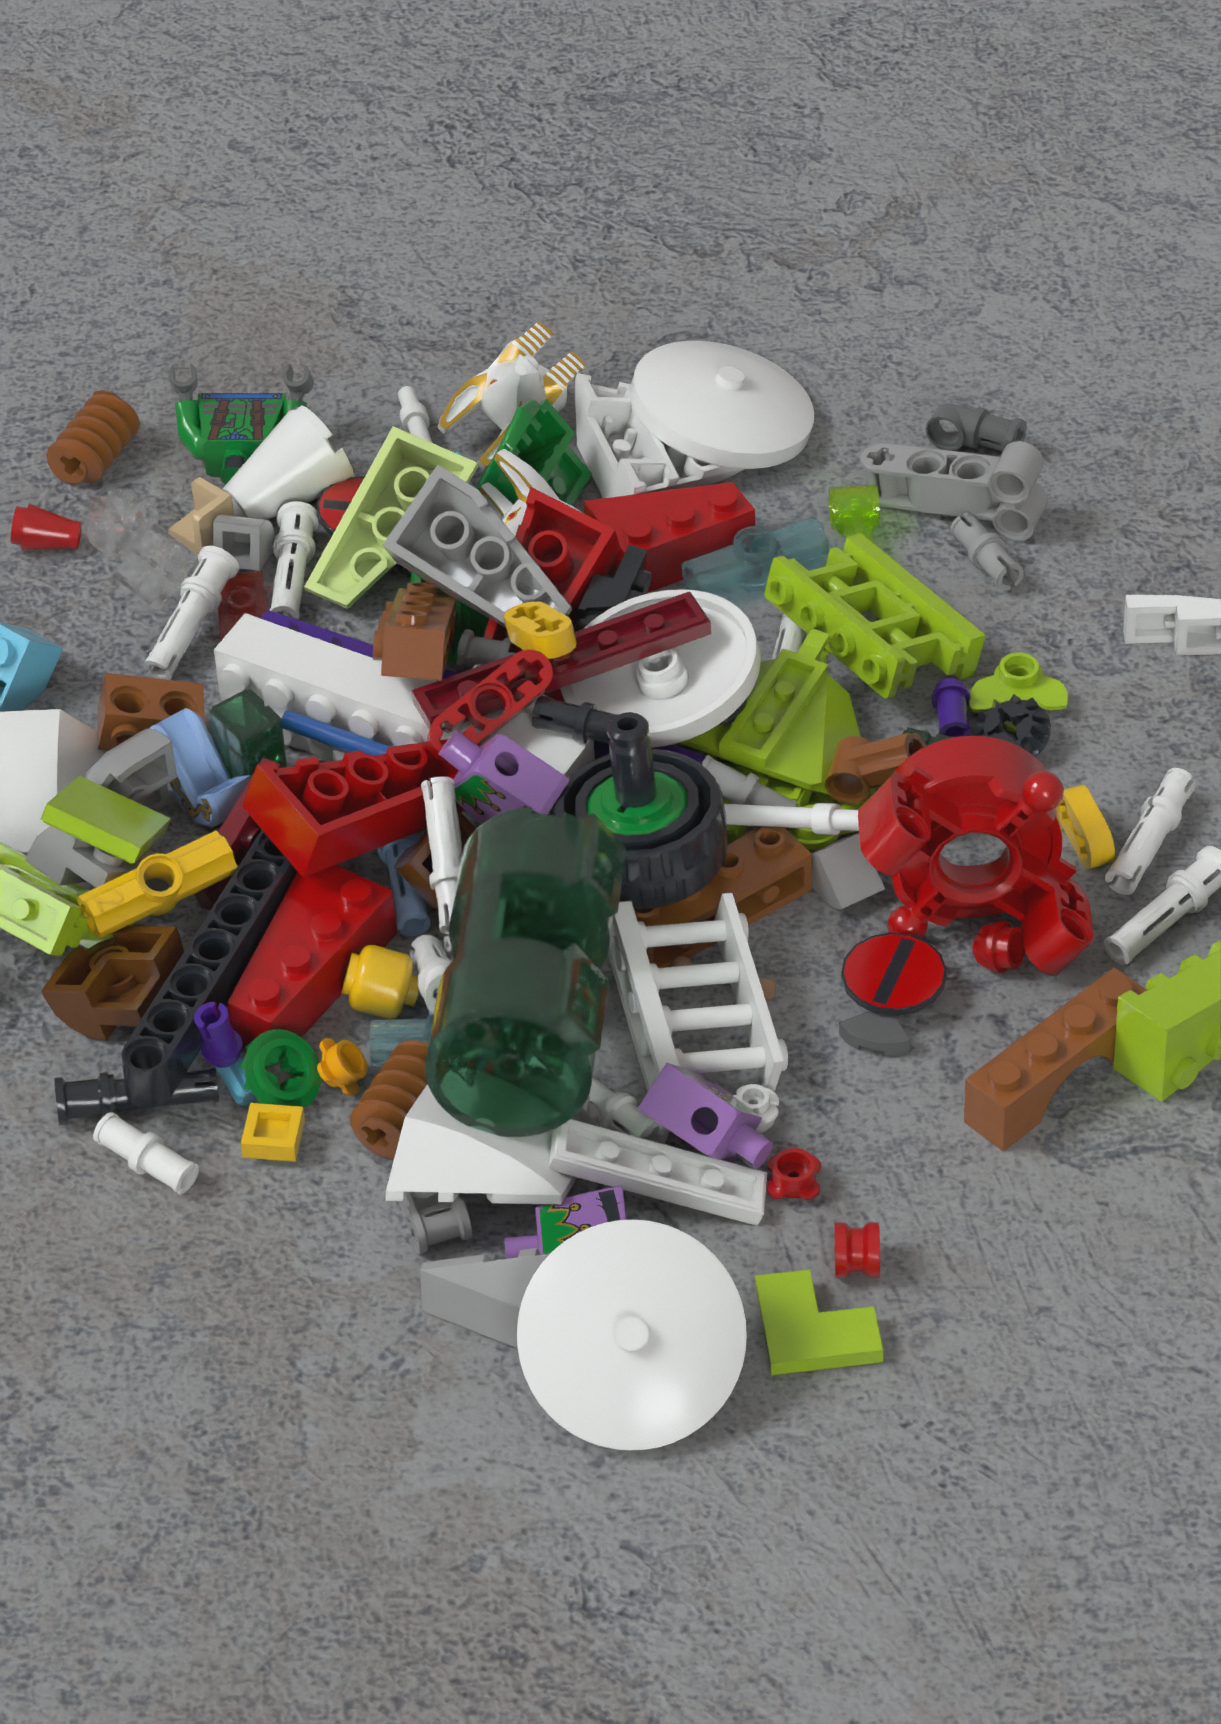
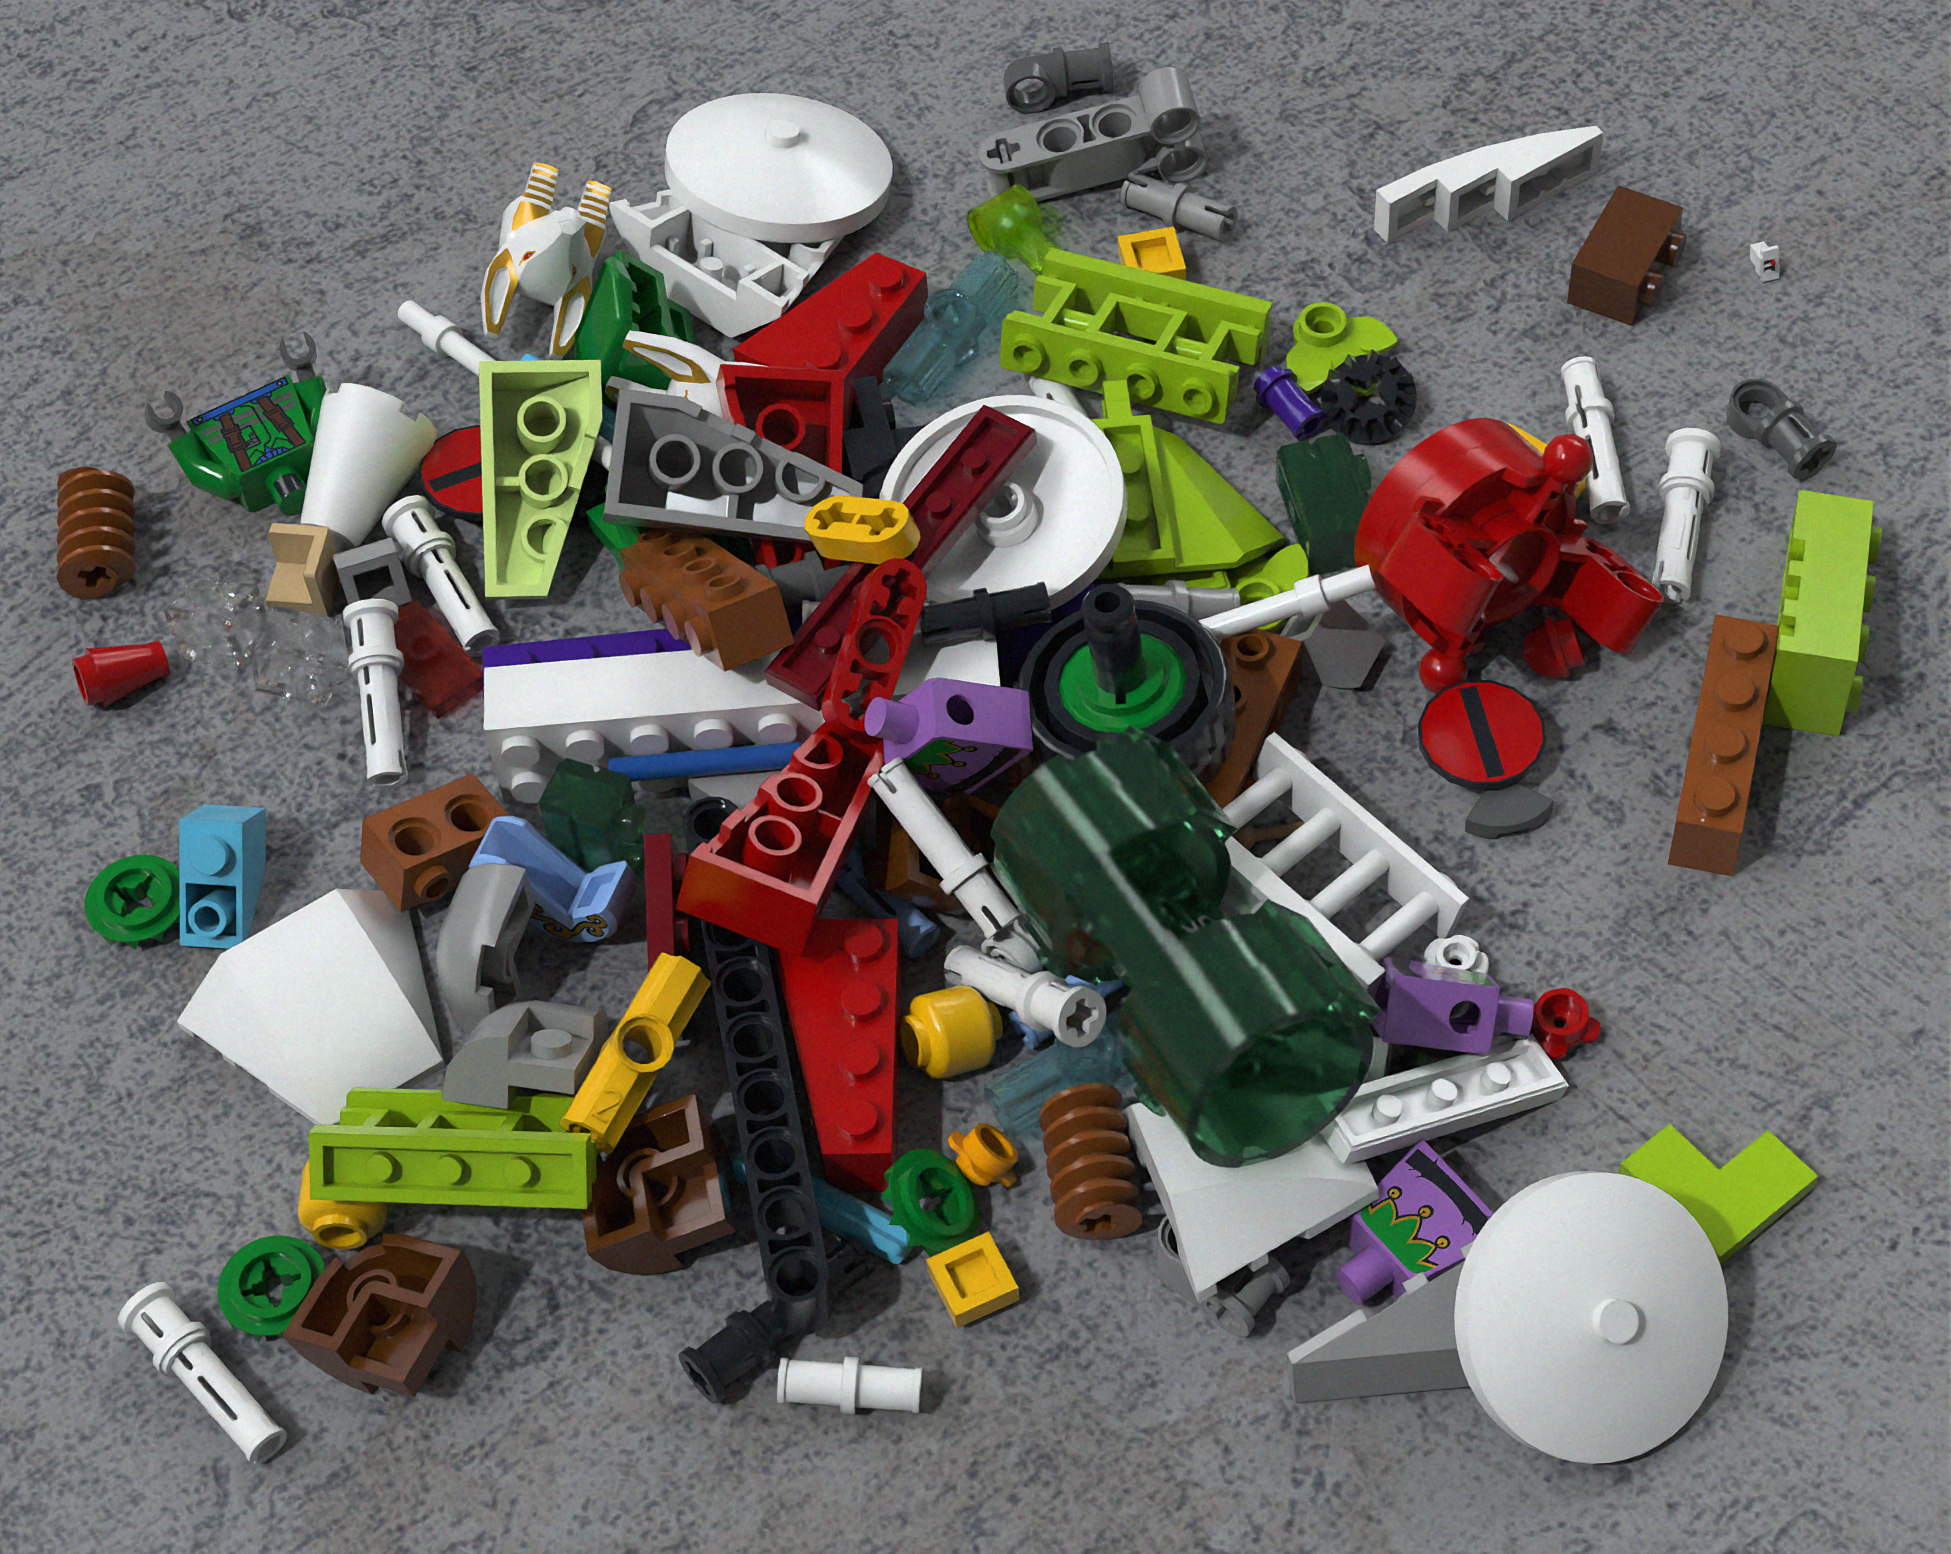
camera: 30 degrees left, 10 degrees up
(105, 819) = (527, 1006): lime tile -> none
(220, 1042) = (842, 1190): dark purple pin -> none
(857, 1249) = (1702, 1074): red wheel -> none
(867, 764) = (1280, 514): dark orange piece -> none
(940, 573) = (1153, 252): none -> yellow plate

